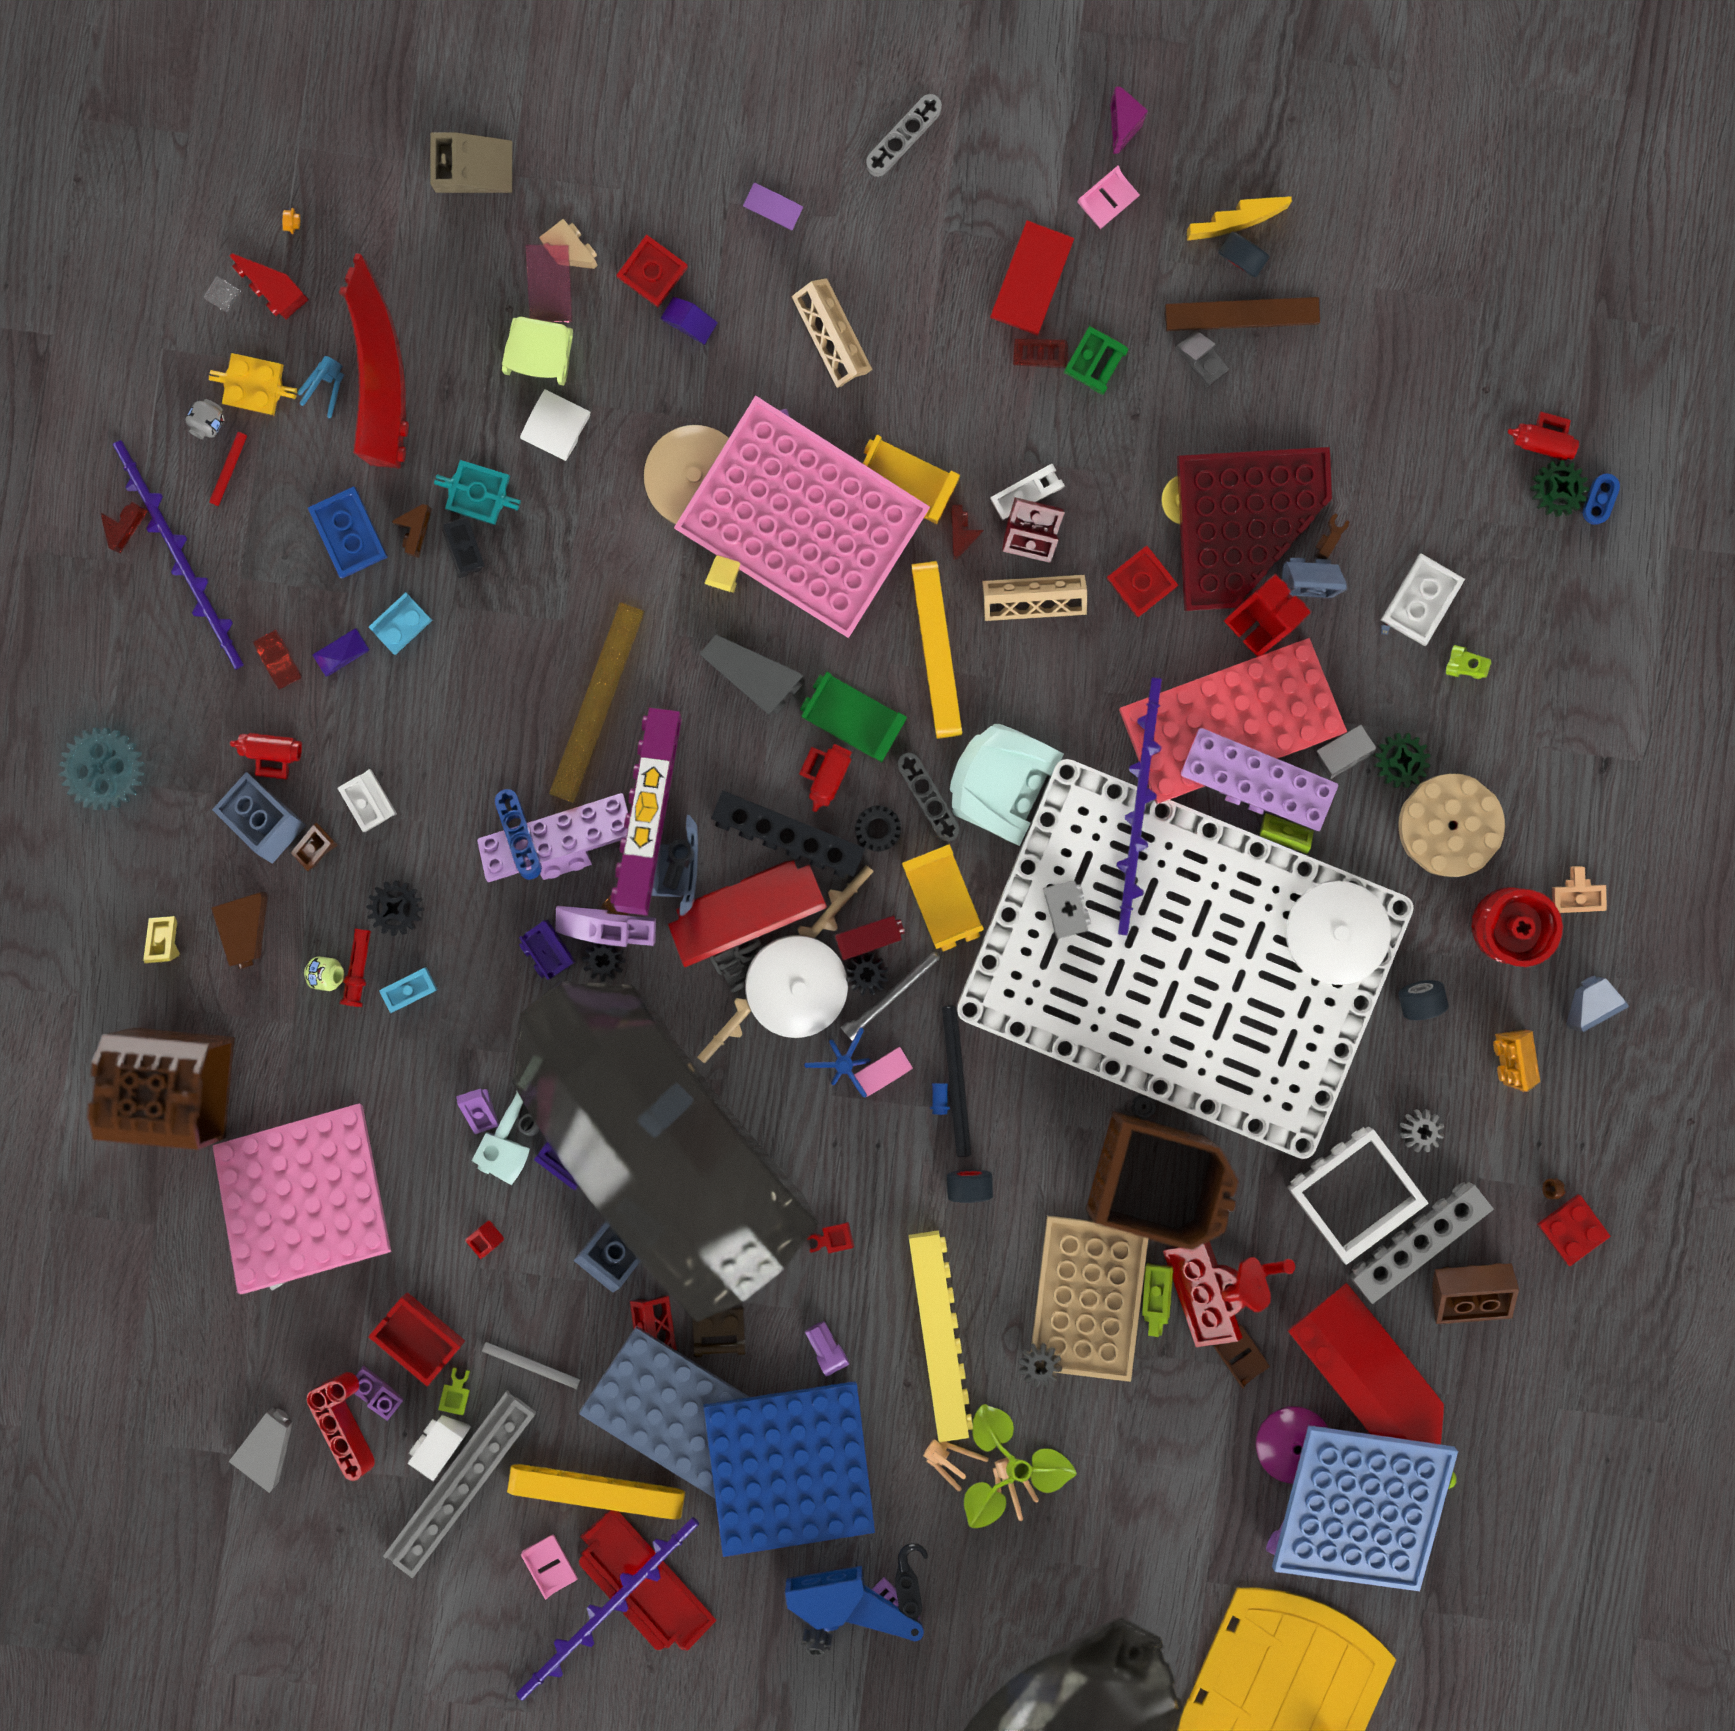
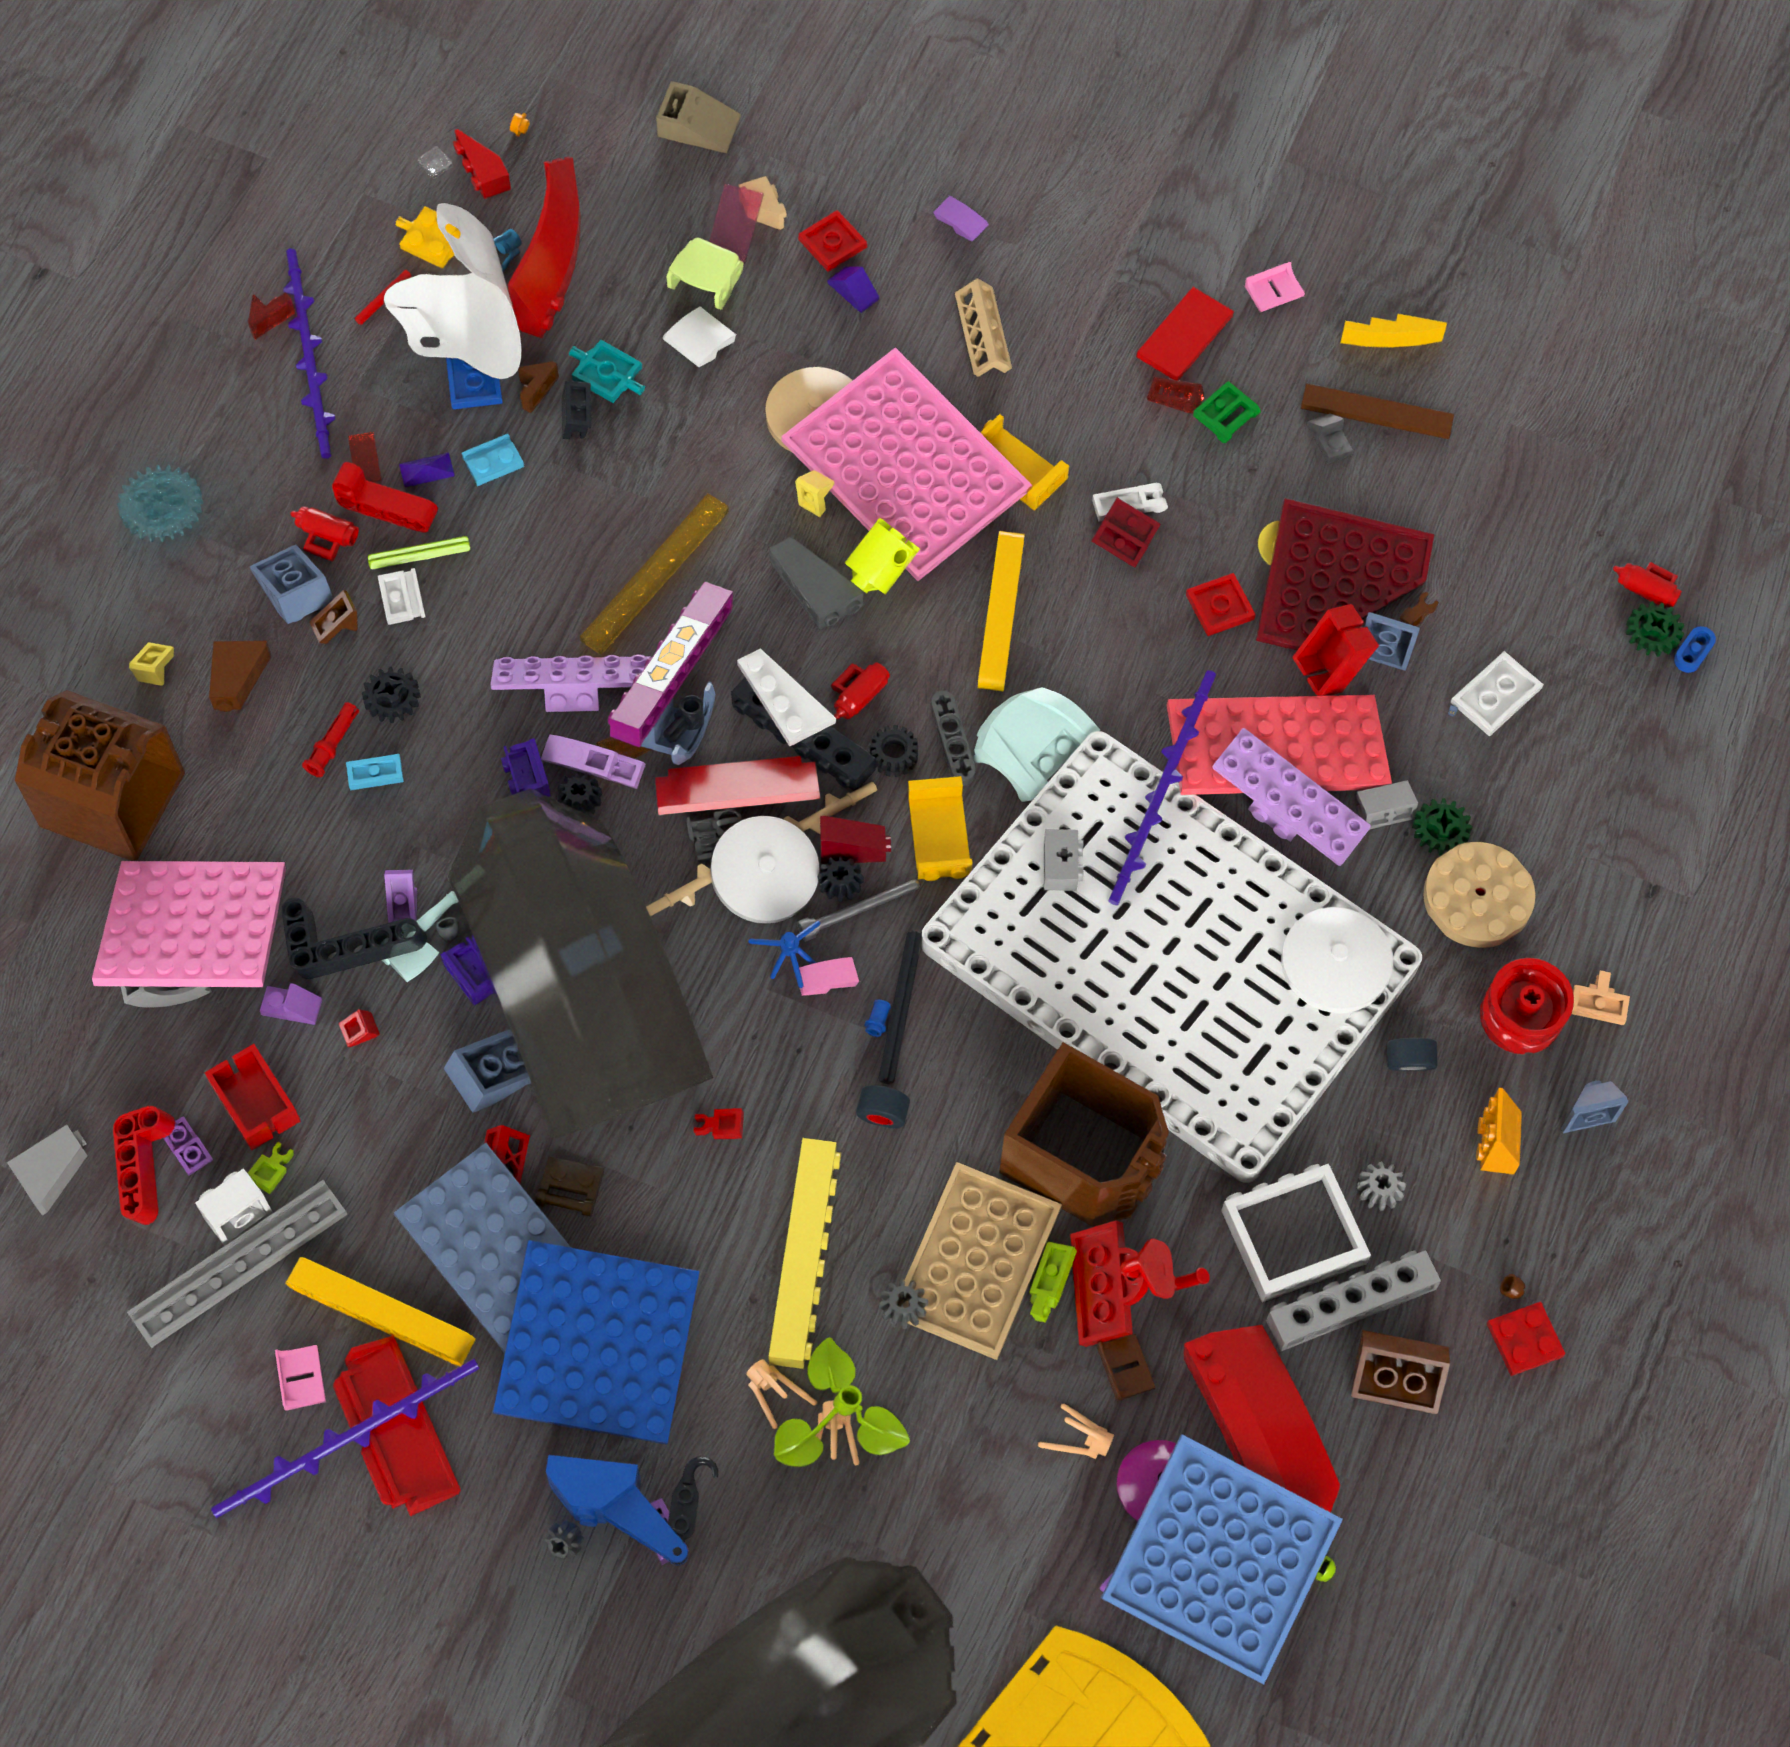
camera: 10 degrees right, 25 degrees down
(205, 419) = (379, 250): light grey head -> none
(308, 468) = (464, 311): none -> white piece
(314, 705) = (381, 502): none -> red beam
(324, 973) = (298, 733): yellowish green head -> none
(366, 747) = (418, 552): none -> axle
(416, 1236) = (291, 1004): none -> medium lavender slope
(445, 1177) = (345, 944): none -> black beam
(517, 834) = (535, 655): blue beam -> none
(531, 1365) = (360, 1165): light grey bar -> none
(764, 815) = (786, 701): none -> white wing
(809, 637) = (880, 558): none -> neon yellow cylinder
(829, 1354) = (679, 1237): medium lavender piece -> none
(852, 716) = (900, 648): green panel -> none
(901, 133) = (1096, 194): light grey beam -> none
(962, 538) = (1057, 521): clear red slope -> none
(1035, 592) = (1113, 583): tan fence -> none
(1126, 118) = (1309, 227): magenta slope -> none
(1232, 1428) = (1097, 1439): none -> light nougat plant
(1244, 254) = (1390, 359): black wheel -> none
(1286, 833) = (1308, 861): lime plate -> none
(1462, 661) = (1530, 757): lime plate -> none

